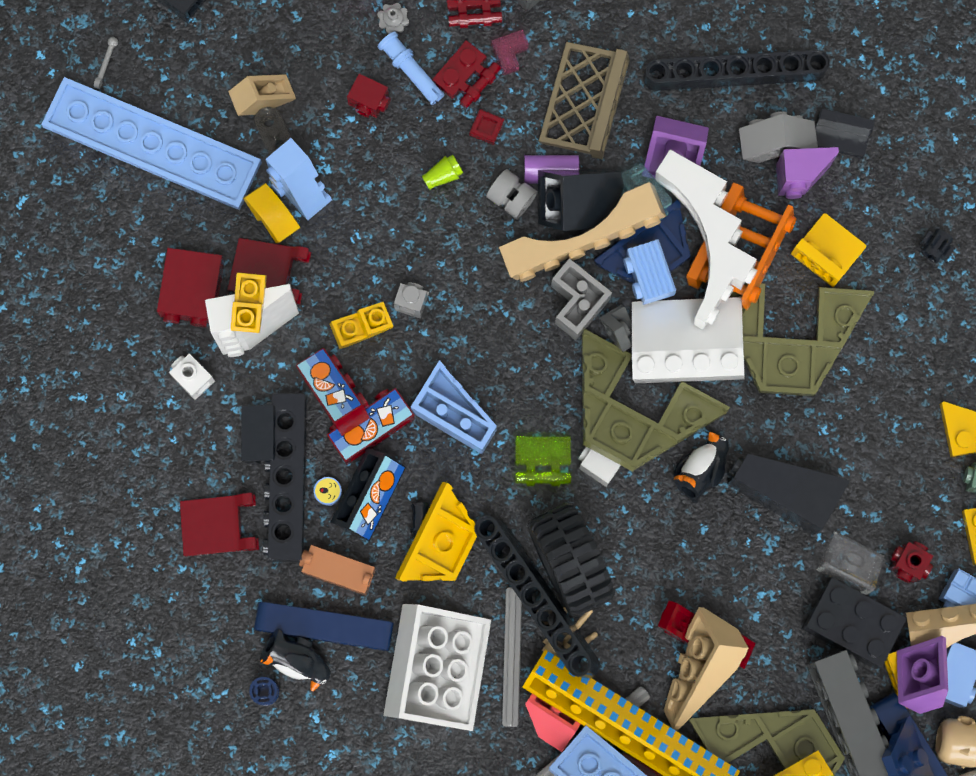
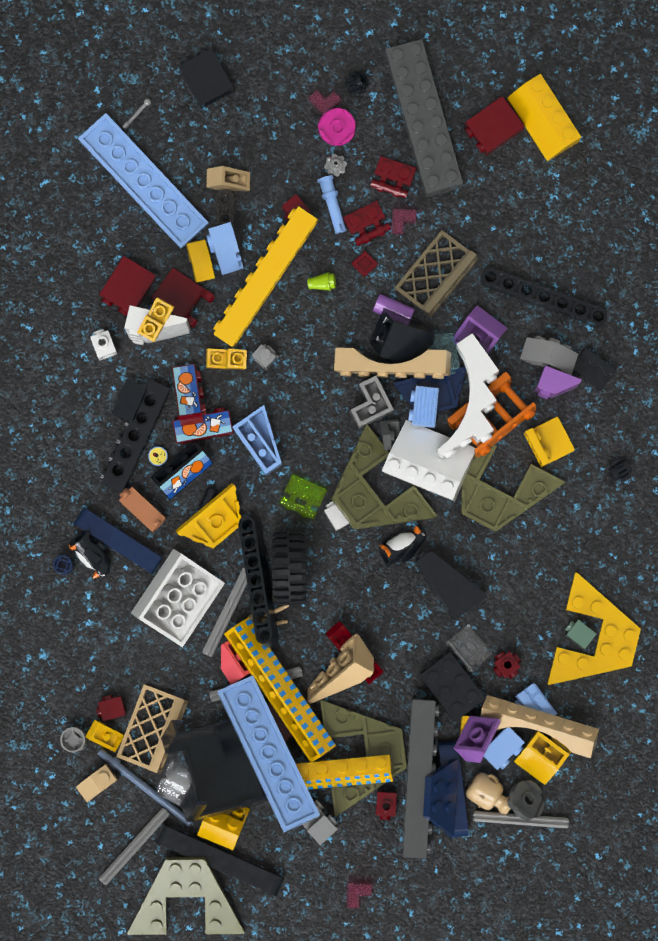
camera: 25 degrees right, 5 degrees up
(215, 525) = (78, 446): dark red flag -> none
(367, 194) = (265, 277): none -> yellow brick
(504, 188) = (356, 310): light grey wheel -> none

